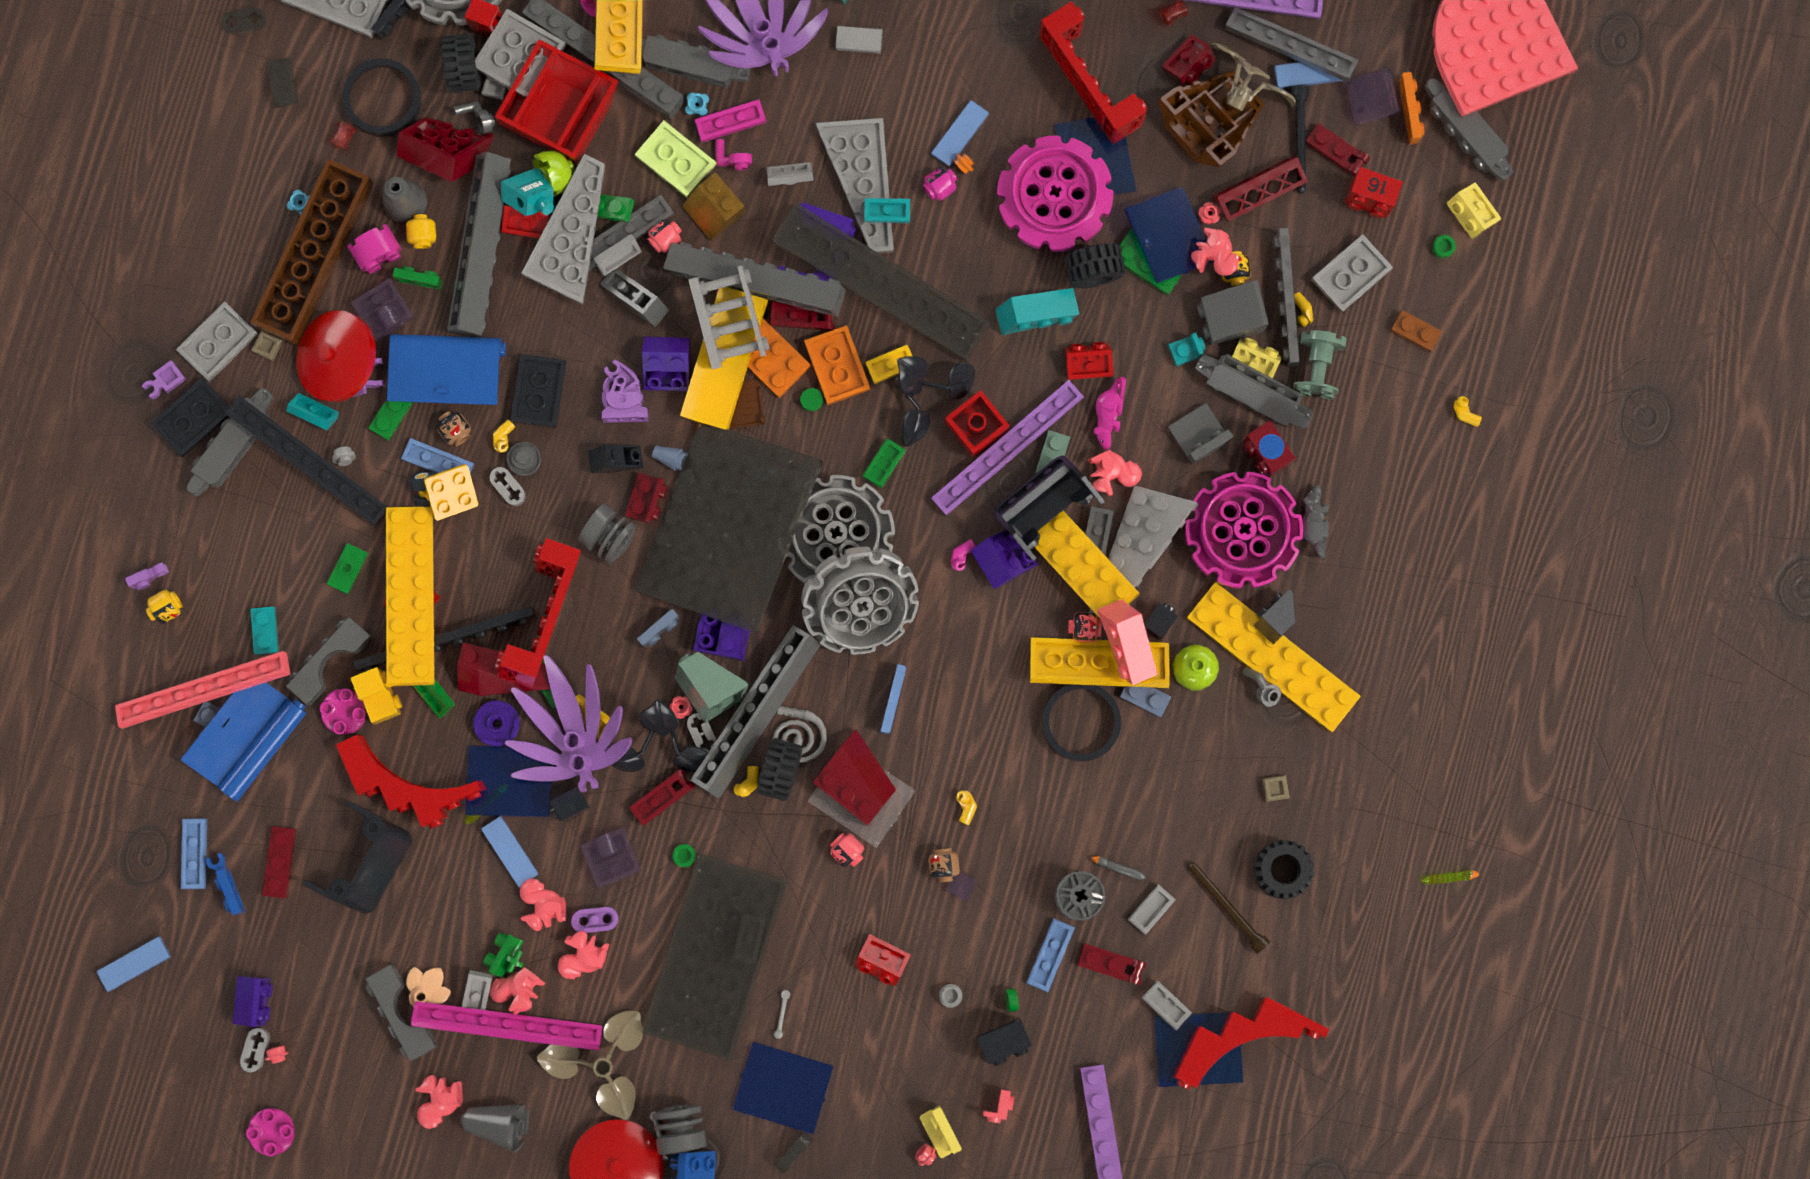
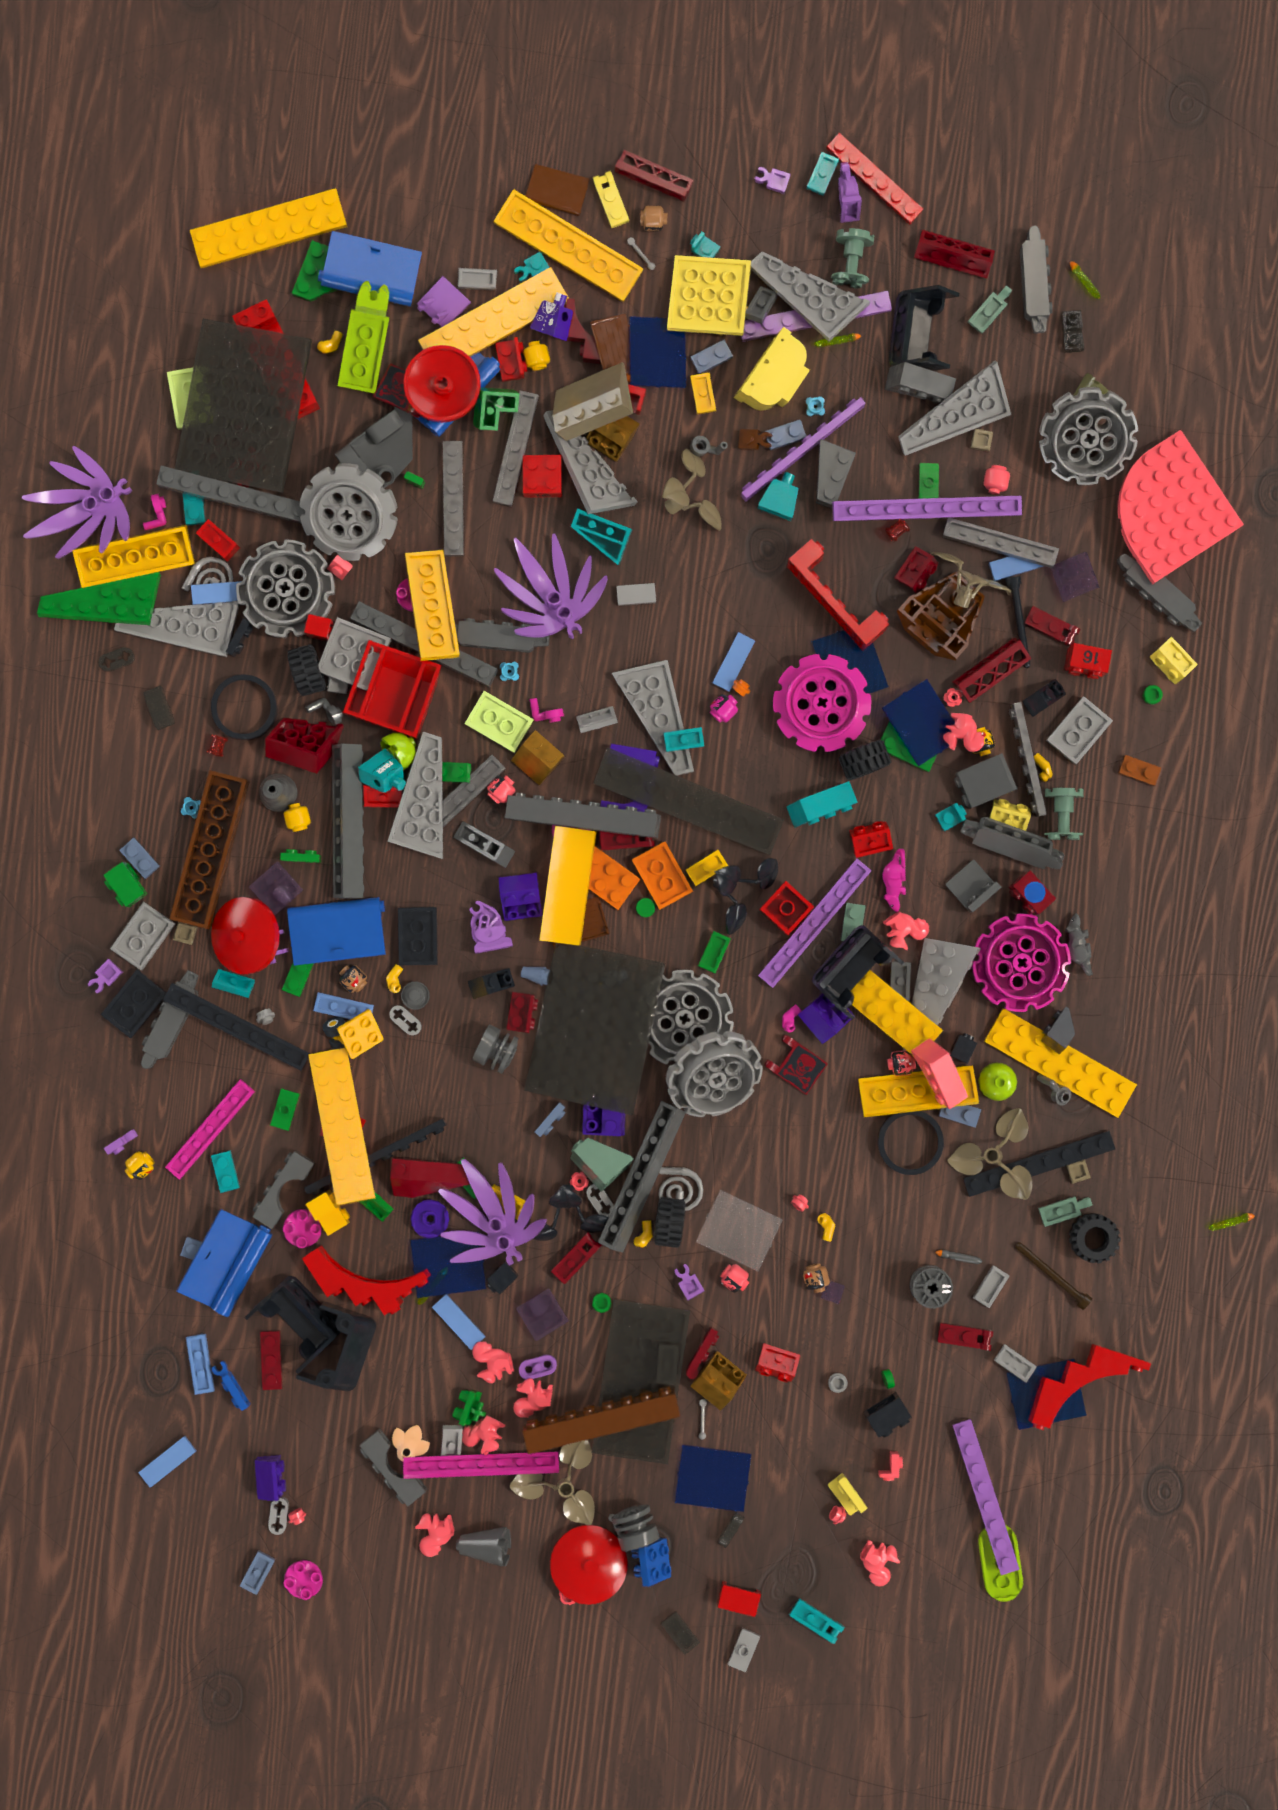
camera: 10 degrees left, 5 degrees up
(202, 689) = (184, 1230): coral tile -> none
(206, 274) = (125, 884): none -> green brick
(217, 1114) = (257, 1572): none -> sand blue plate
(229, 251) = (139, 858): none -> sand blue plate
(255, 578) = (210, 1129): none -> dark pink tile
(325, 812) = (302, 1314): none -> black windscreen
(375, 248) = (261, 839): dark pink brick -> none
(559, 563) = (458, 1079): red plate -> none
(617, 255) = (464, 811): light grey tile -> none
(658, 992) = (600, 1420): none -> reddish brown brick
(712, 333) = (556, 869): light grey fence -> none
(730, 121) = (539, 681): dark pink plate -> none
(793, 850) = (690, 1285): none -> medium lavender plate
(793, 934) = (701, 1354): none -> dark red plate
(808, 970) = (718, 1380): none -> pearl gold slope
(856, 780) = (733, 1220): dark red wedge -> none
(893, 699) = (753, 1147): medium blue tile -> none
(938, 773) = (800, 1202): none -> coral plate
(963, 614) = (799, 1067): none -> flag
(1050, 955) = (914, 1336): medium blue tile -> none
(1147, 752) = (968, 1158): none -> dark tan plant
(1230, 772) = (1042, 1162): none -> black plate
(1250, 831) = (1063, 1210): none -> sand green plate
(1316, 229) = (1044, 697): none -> black slope
(1411, 108) = (1109, 581): orange plate -> none
(1463, 412) = (1189, 834): yellow arm -> none

